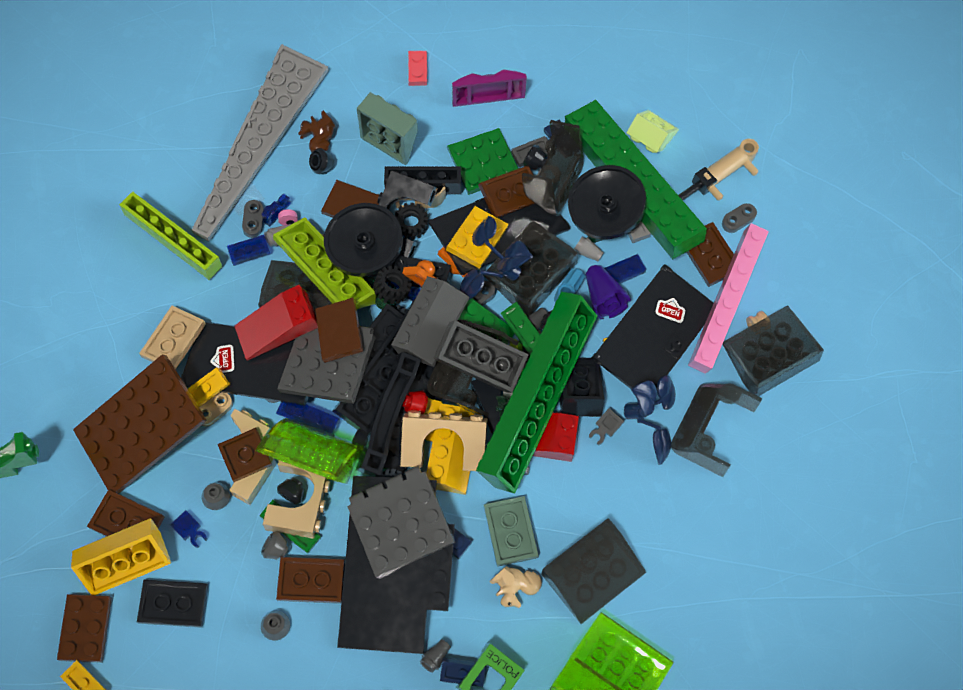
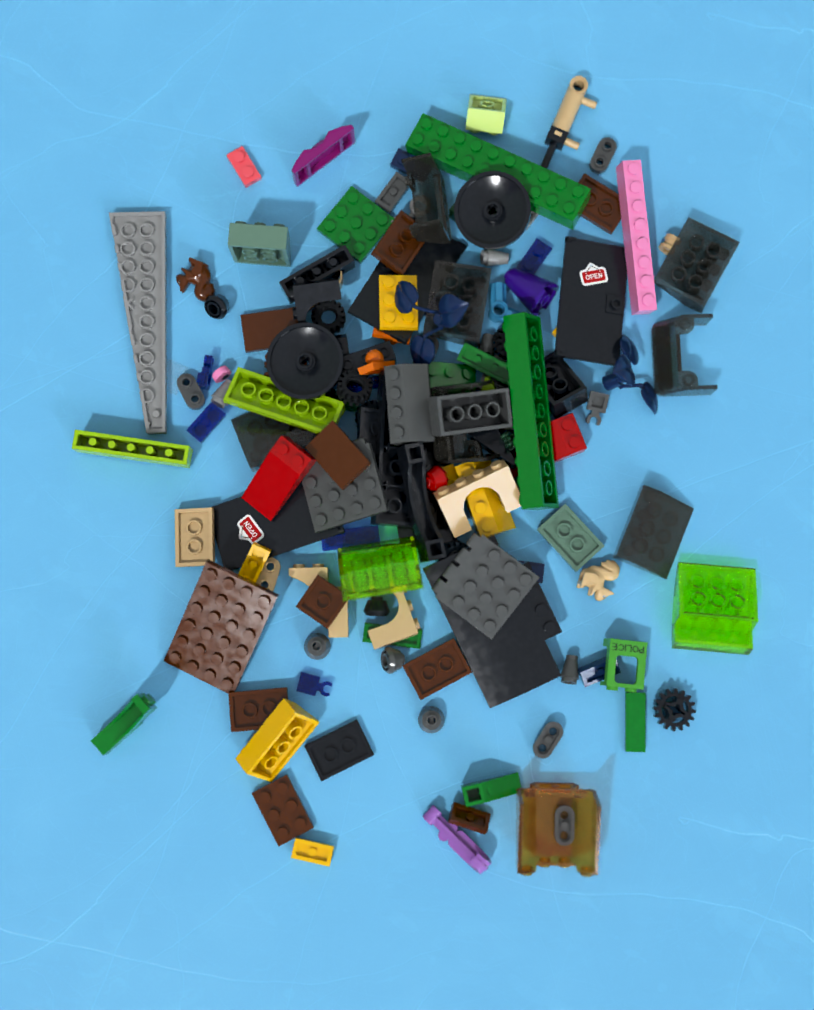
camera: 30 degrees left, 15 degrees up
(535, 158) = (402, 199): black cone -> none

